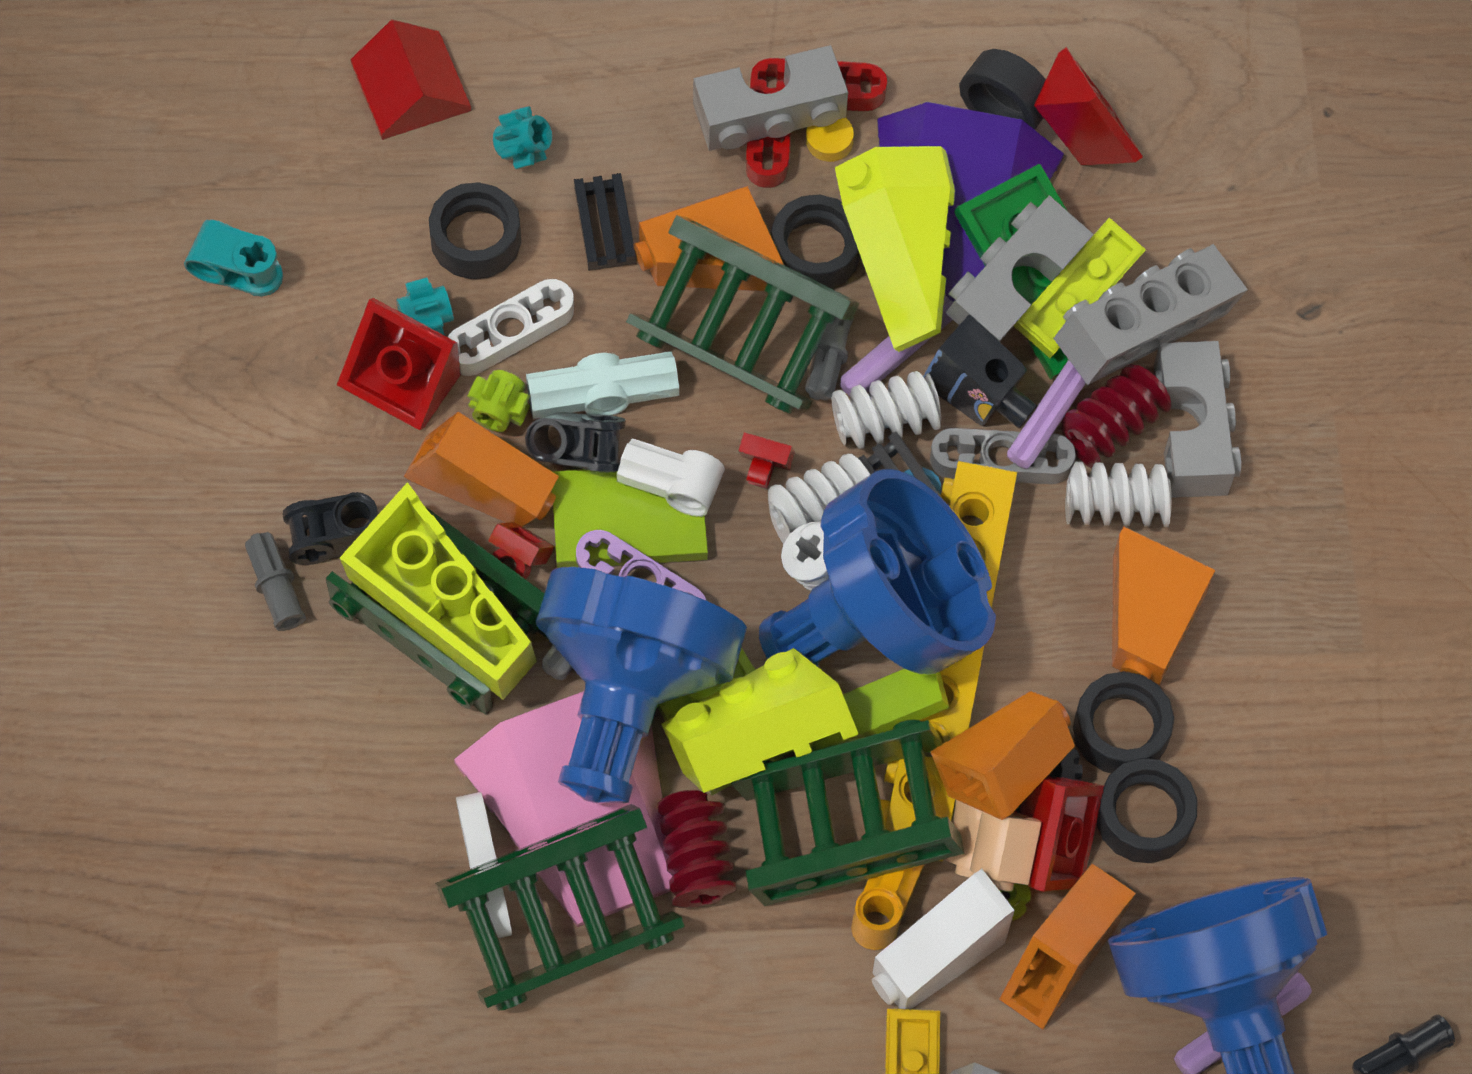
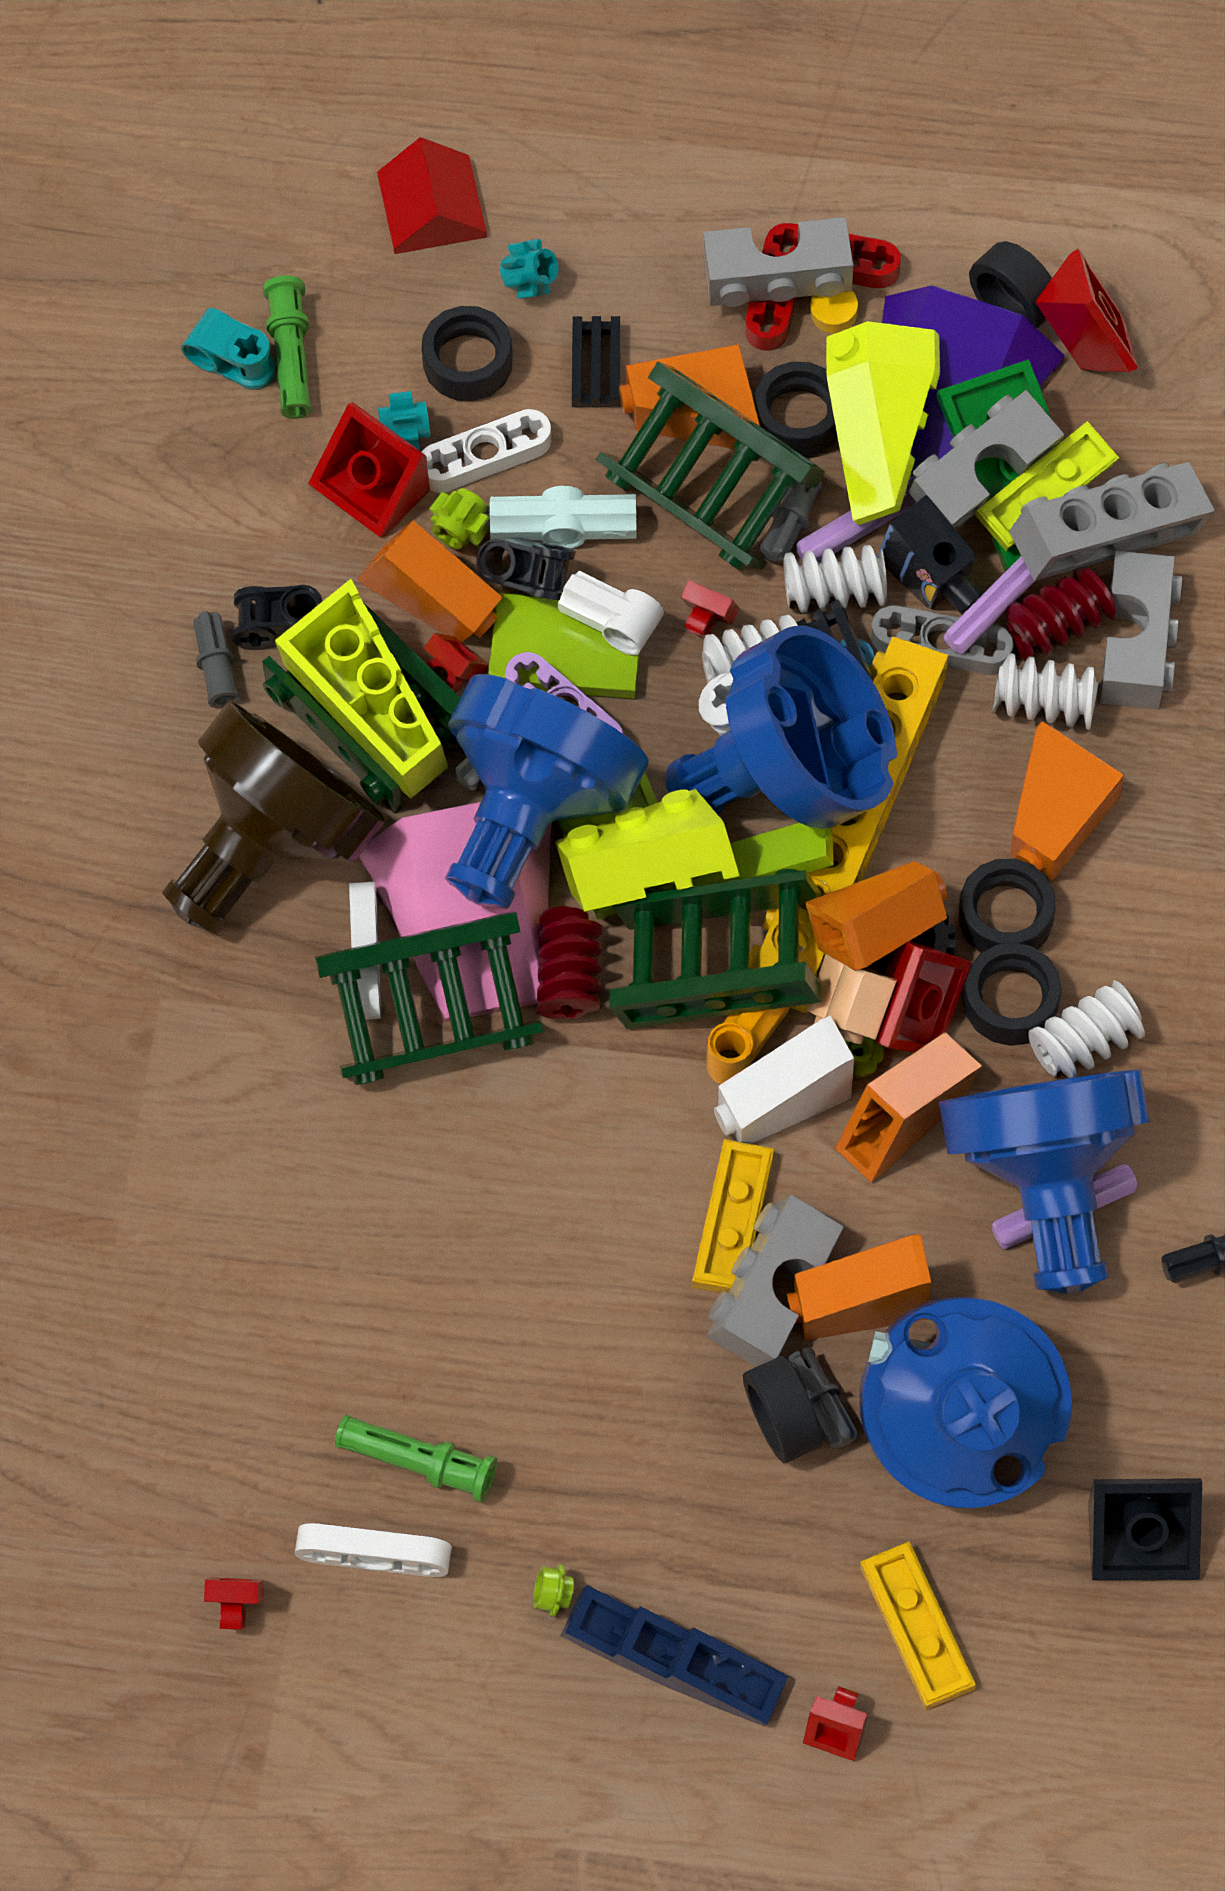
camera: 15 degrees right, 0 degrees up
(289, 229) = (287, 327): none -> bright green pin
(365, 731) = (272, 806): none -> dark brown piece
(1229, 838) = (1086, 1030): none -> white piece

